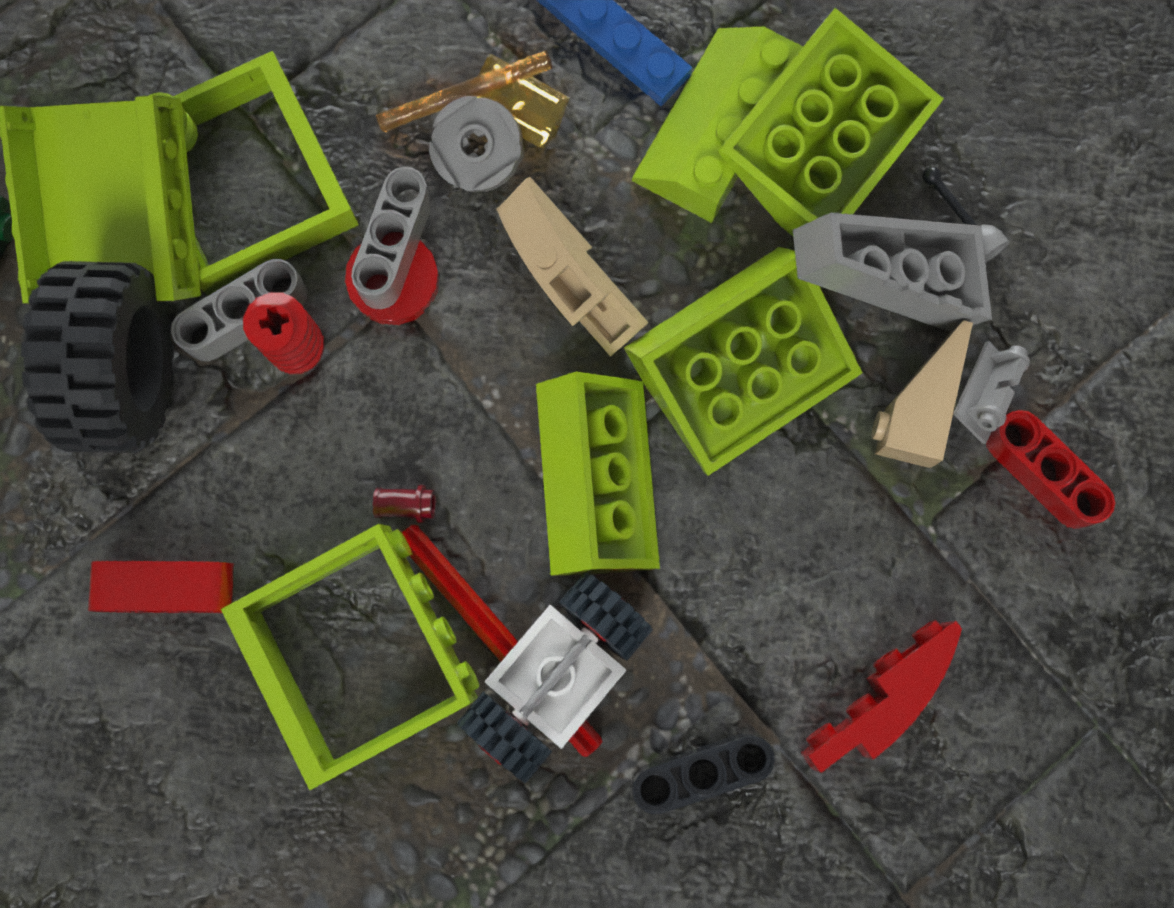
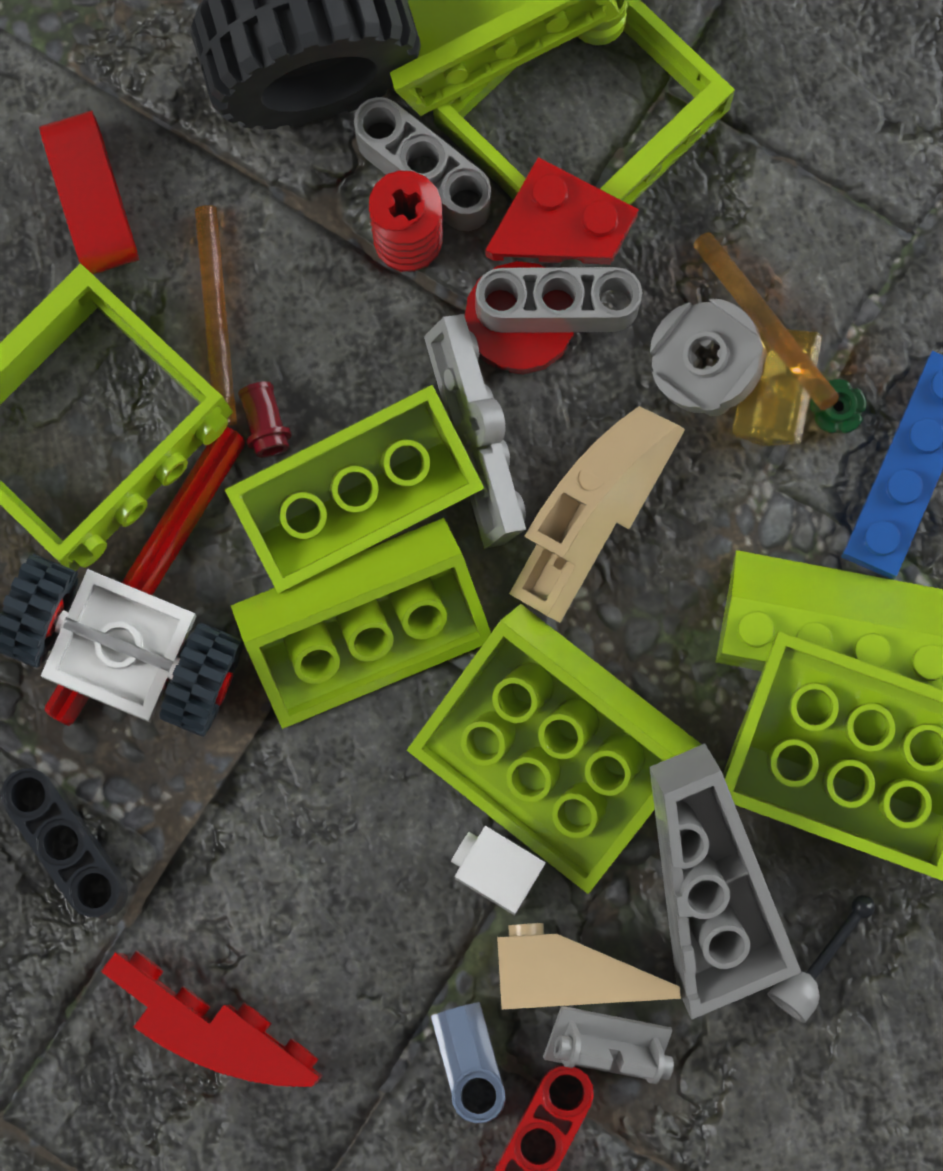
camera: 75 degrees right, 0 degrees up
(289, 513) = (215, 305): none -> clear orange bar
(329, 211) = (561, 220): none -> red wing
(472, 337) = (479, 426): none -> light grey hinge
(488, 446) = (354, 488): none -> lime slope
(560, 64) = (847, 419): none -> dark green plate
(827, 432) = (496, 868): none -> white brick
(969, 501) = (468, 1056): none -> sand blue piece

